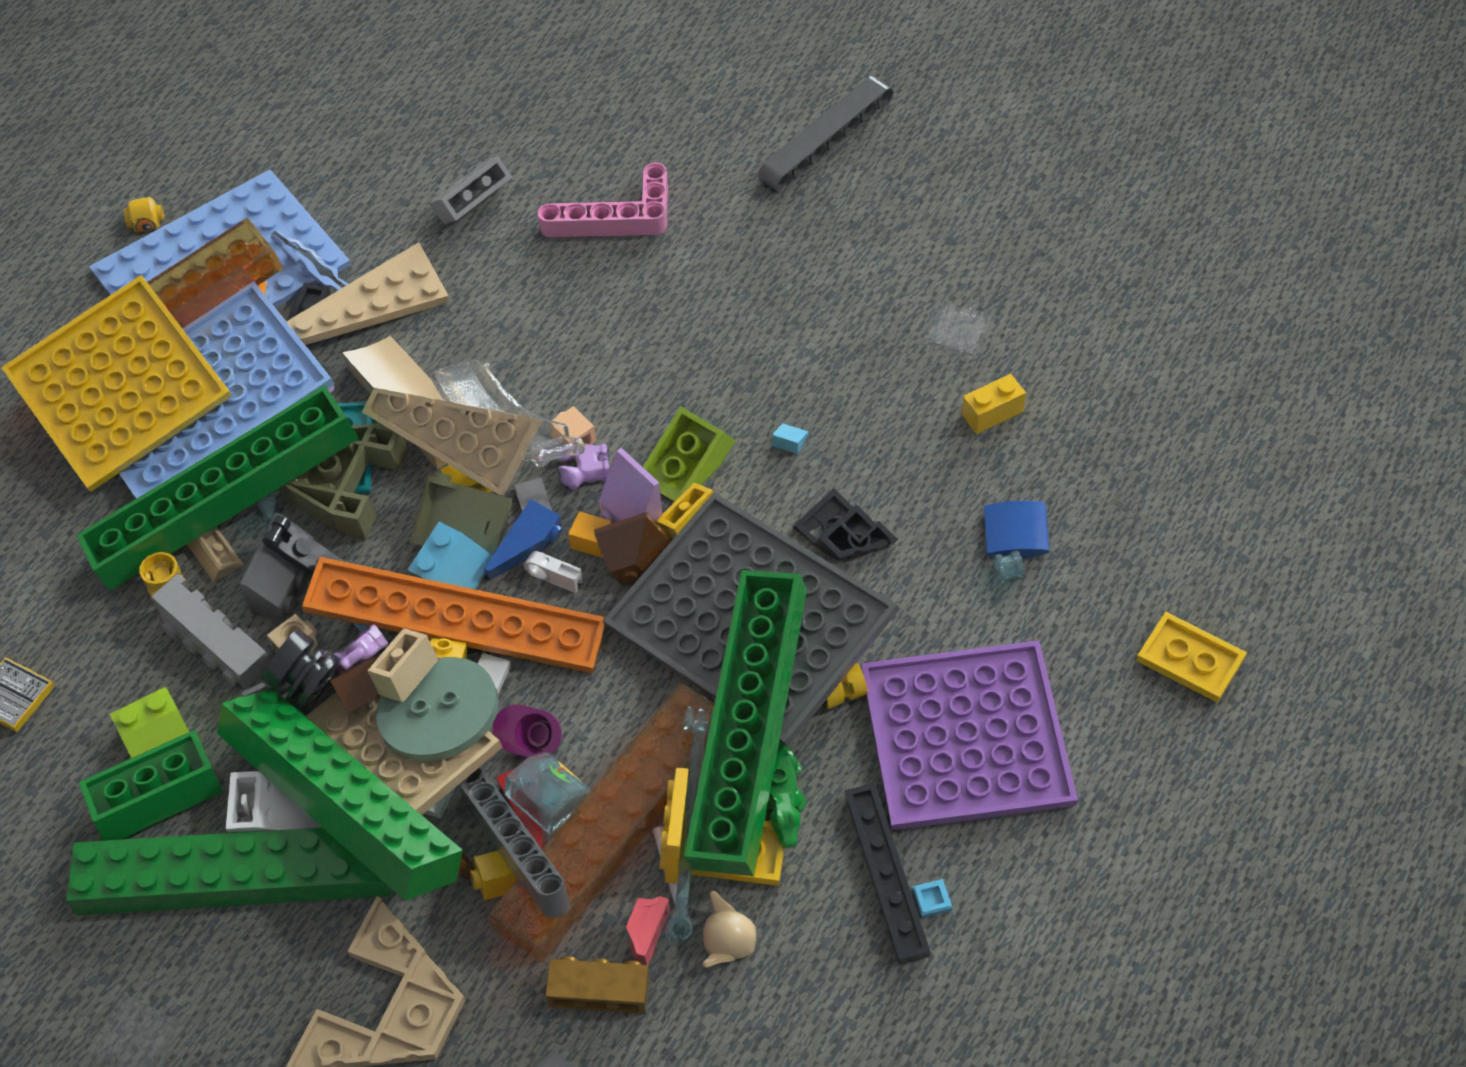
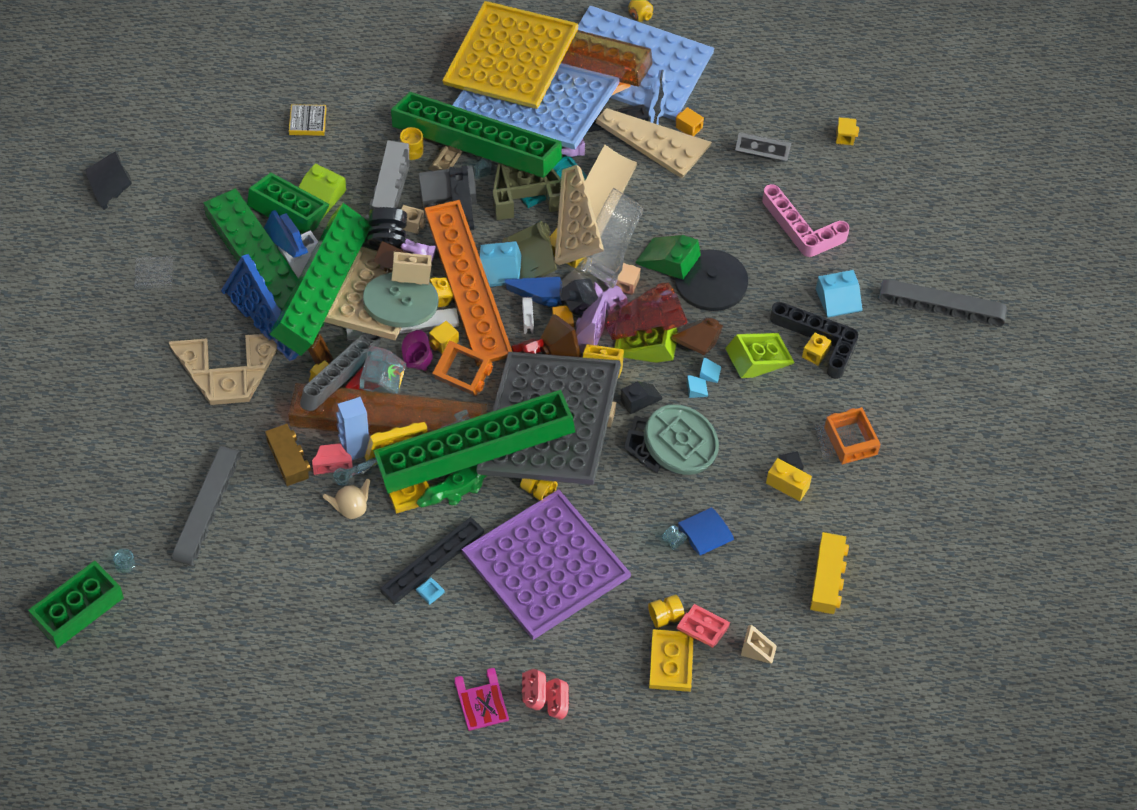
camera: 55 degrees right, 0 degrees up
(220, 806) = (285, 234): none -> blue wedge
(295, 900) = (254, 300): none -> blue wing
(370, 249) = (689, 122): none -> light orange brick
(507, 101) = (846, 131): none -> yellow brick
(523, 687) = (440, 336): none -> yellow brick
(569, 366) = (671, 255): none -> green slope
(571, 703) = (446, 360): none -> orange window
(575, 492) = (579, 295): none -> black torso
(609, 589) = (530, 346): none -> red piece
(633, 345) = (714, 281): none -> black dish
(633, 861) = (353, 427): none -> light blue brick
(657, 420) = (650, 310): none -> clear red wedge
(719, 392) = (699, 335): none -> reddish brown slope
(747, 223) = (839, 293): none -> medium azure slope
(769, 504) = (639, 396): none -> black slope
(773, 412) = (710, 371): none -> medium azure slope
(784, 348) = (758, 354): none -> lime slope
(791, 264) = (806, 323): none -> black beam
(815, 284) = (816, 349): none -> yellow brick
(866, 488) = (681, 439): none -> sand green plate
(959, 388) = (792, 459): none -> black plate
(972, 290) = (858, 451): none -> orange window
(1118, 626) = (664, 611): none -> yellow wheel
(1146, 913) = (482, 704): none -> flag
(1151, 428) = (828, 573): none -> yellow brick
(1161, 596) = (703, 625): none -> coral slope
(1170, 826) = (539, 692): none -> coral piece
(1216, 554) = (758, 646): none -> tan slope

